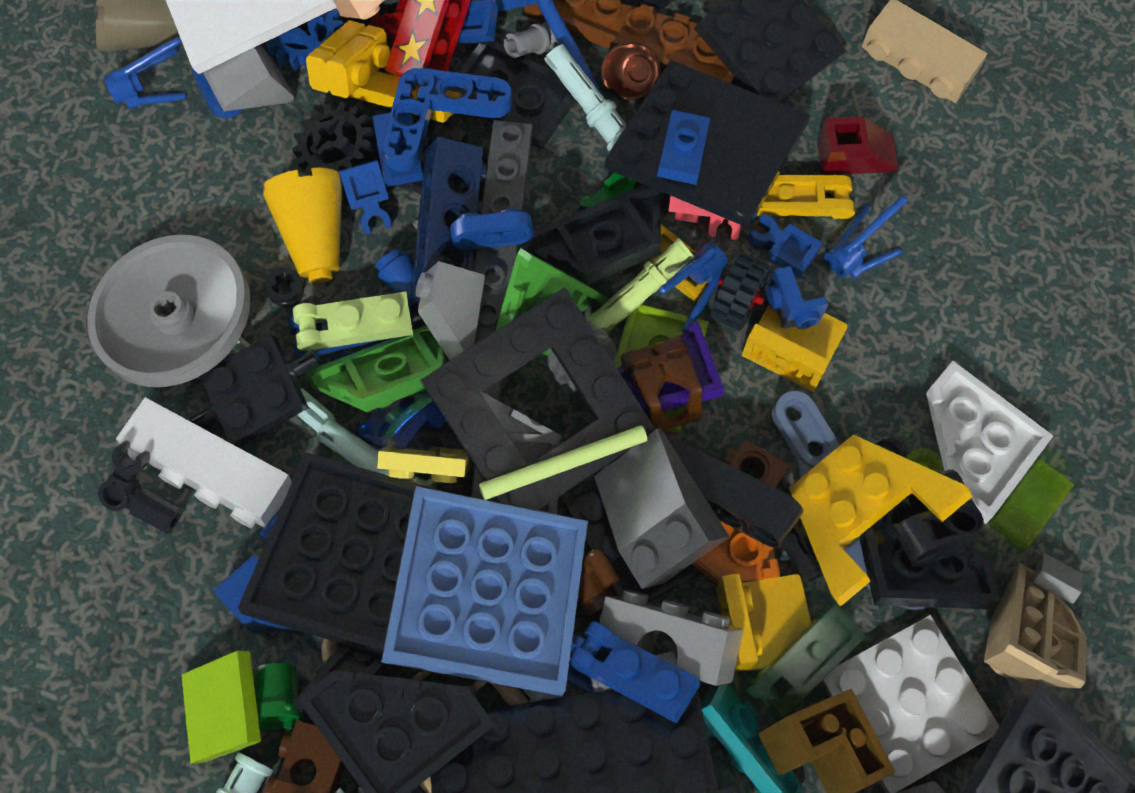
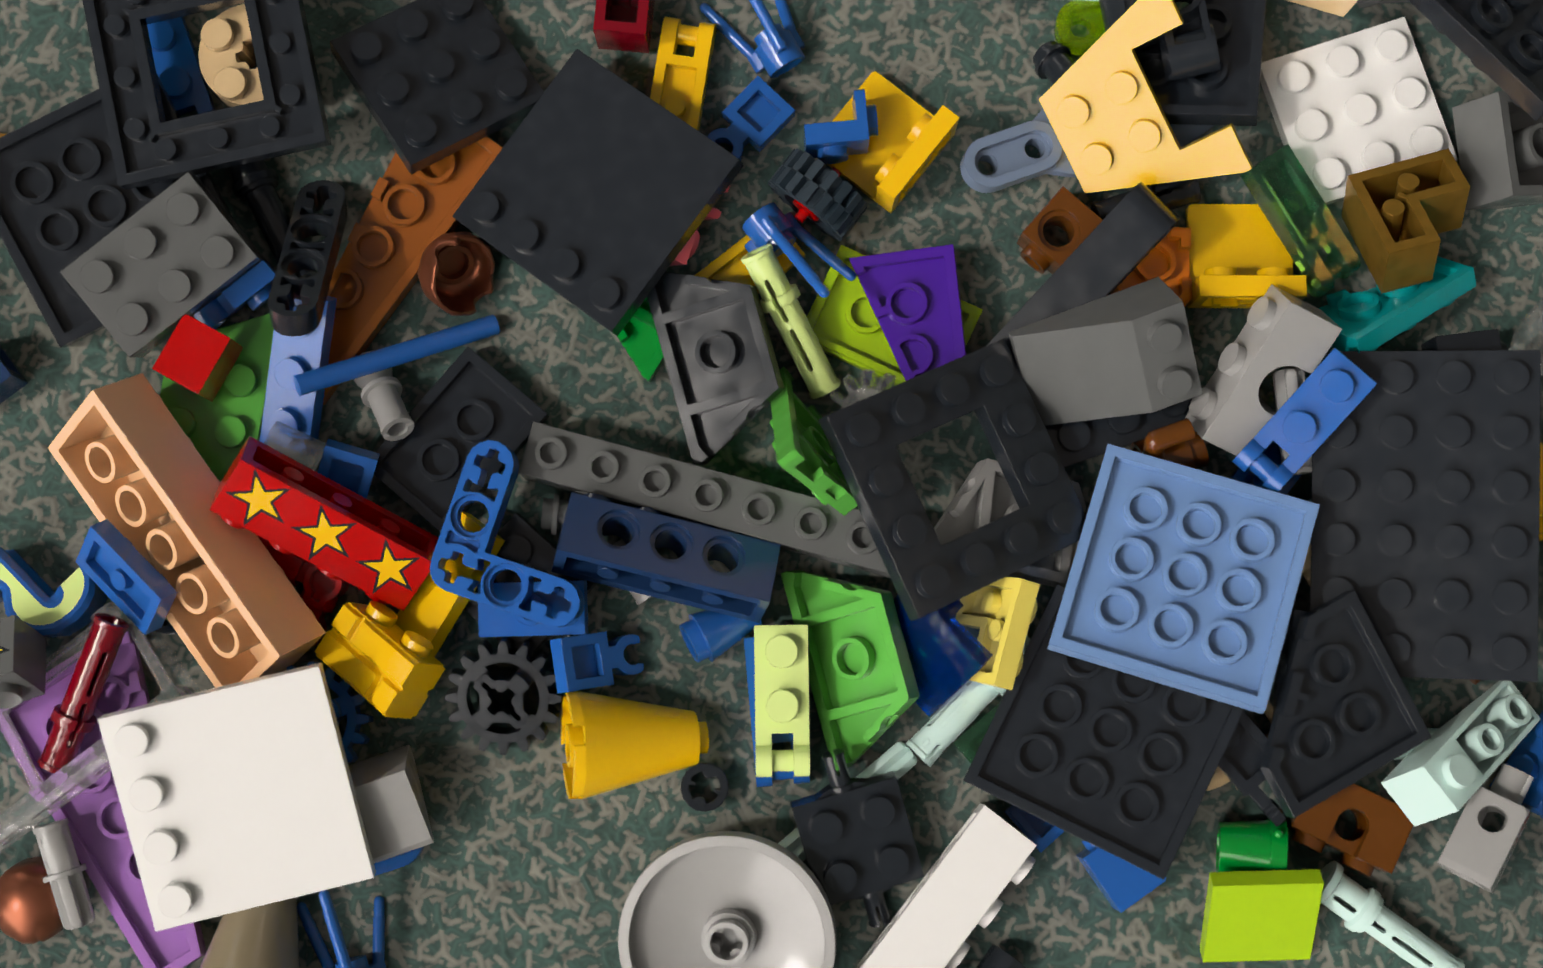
camera: 75 degrees left, 15 degrees up
(451, 305) = (807, 566): light grey slope -> none
(491, 230) = (701, 522): blue plate -> none
(562, 462) = (1038, 459): yellowish green bar -> none
(599, 111) = (515, 327): light aqua pin -> none
(654, 367) = (911, 318): reddish brown piece -> none
(683, 147) = (617, 225): blue plate -> none

